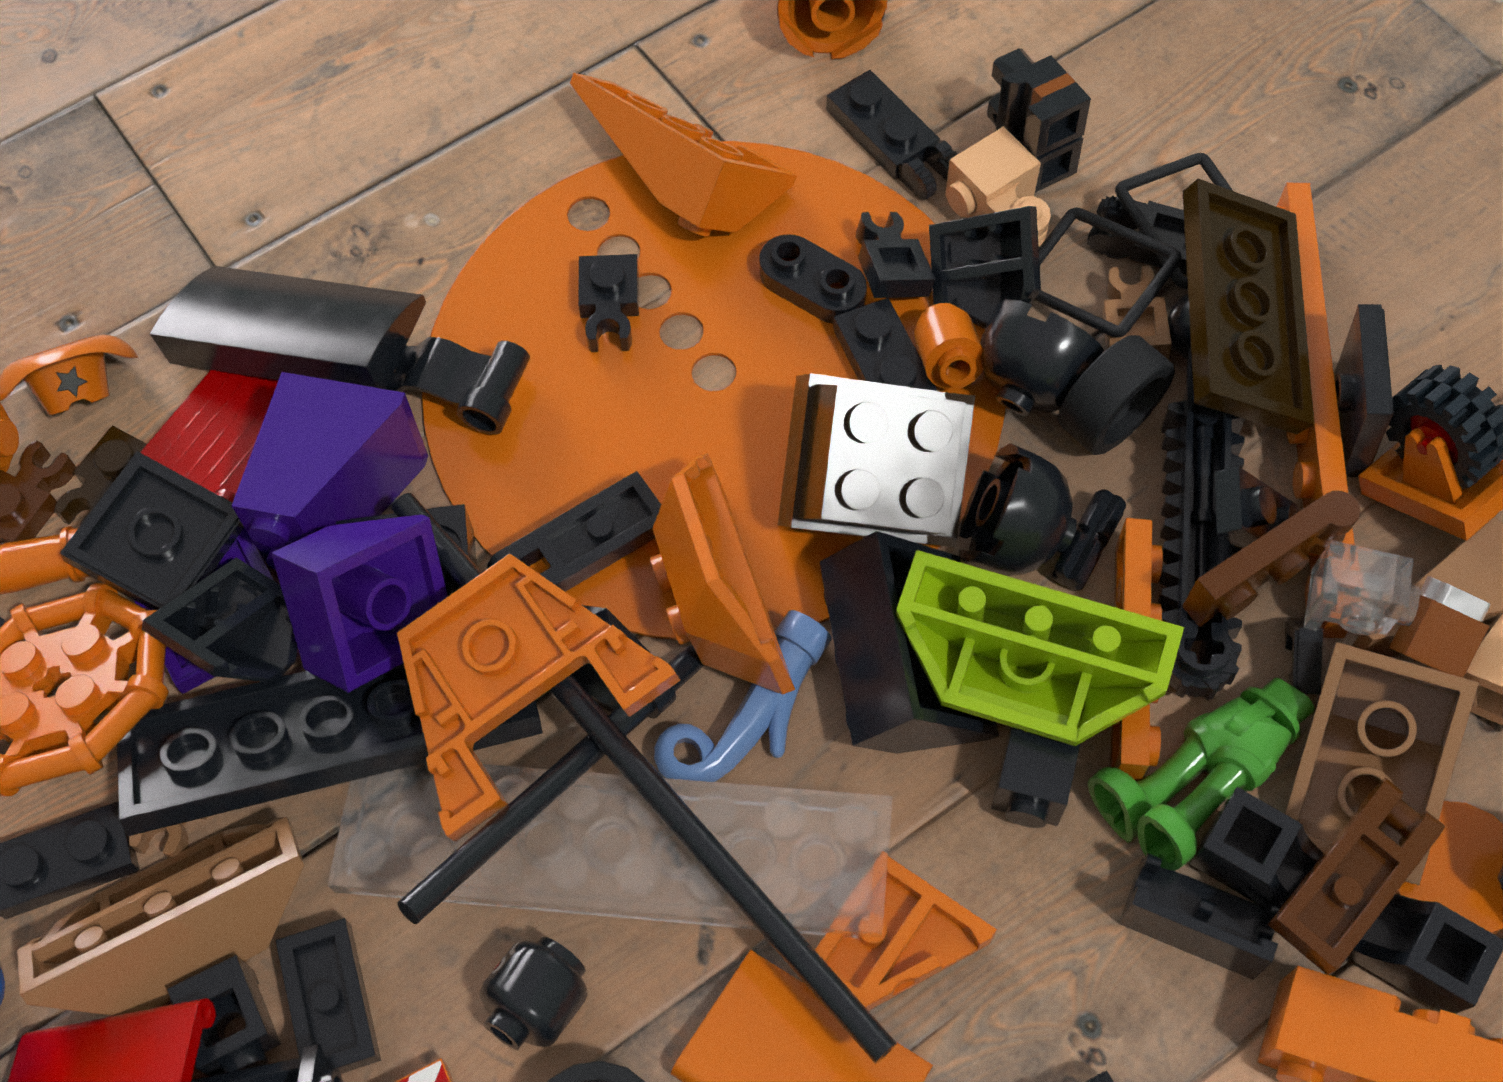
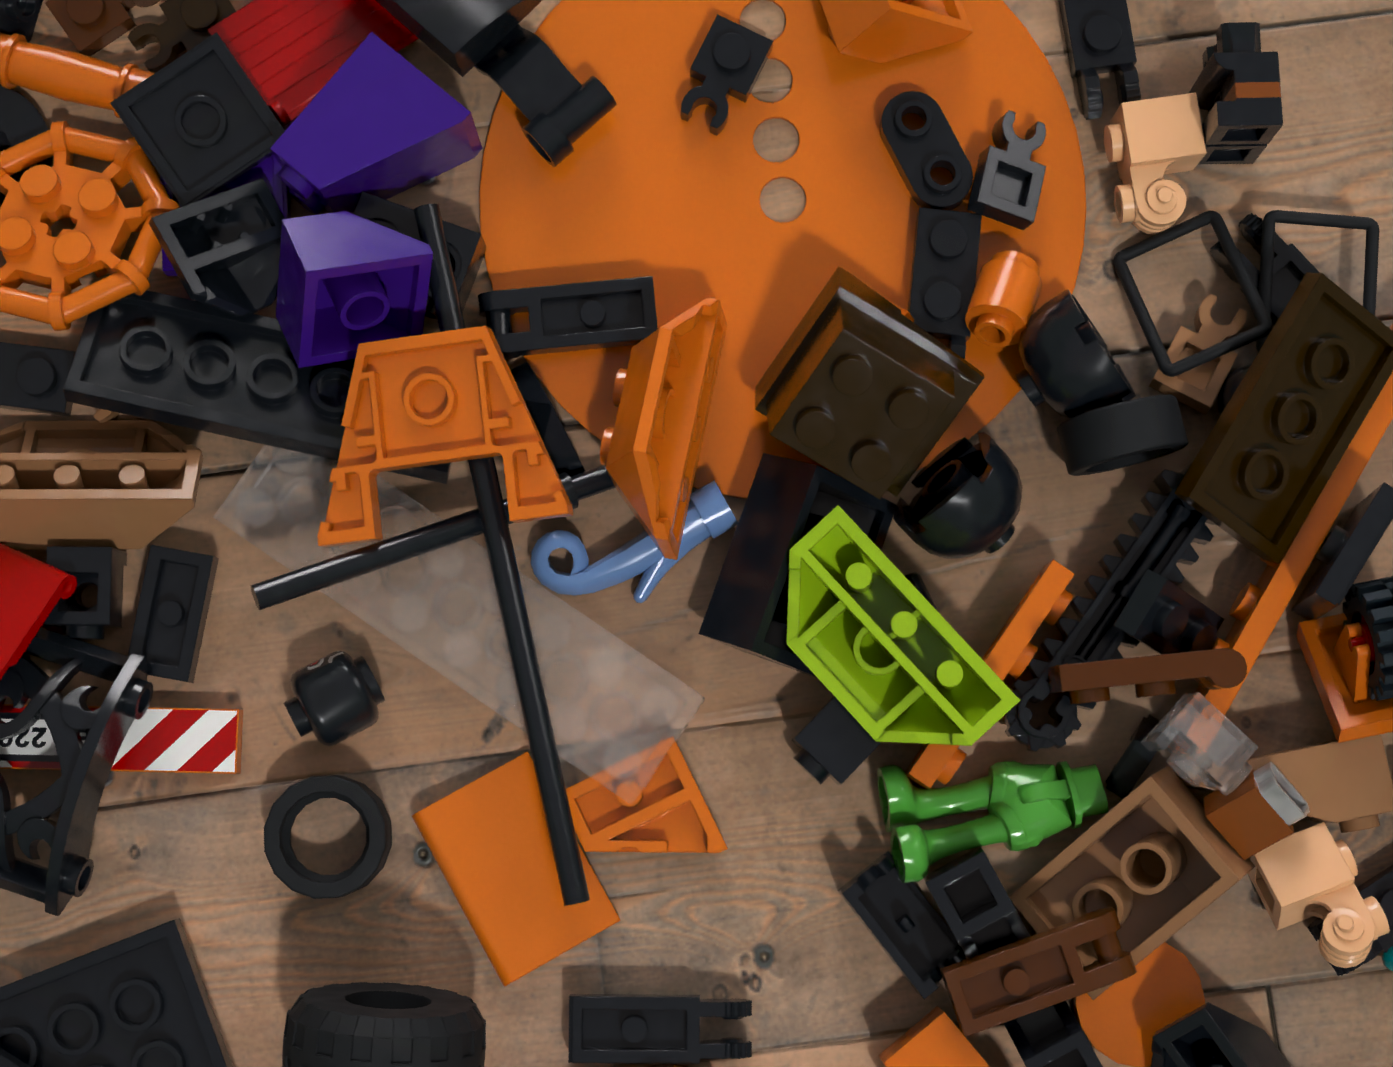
camera: 25 degrees right, 20 degrees up
(986, 261) = (1087, 234): black slope -> none
(1090, 538) = (1029, 545): black piece -> none

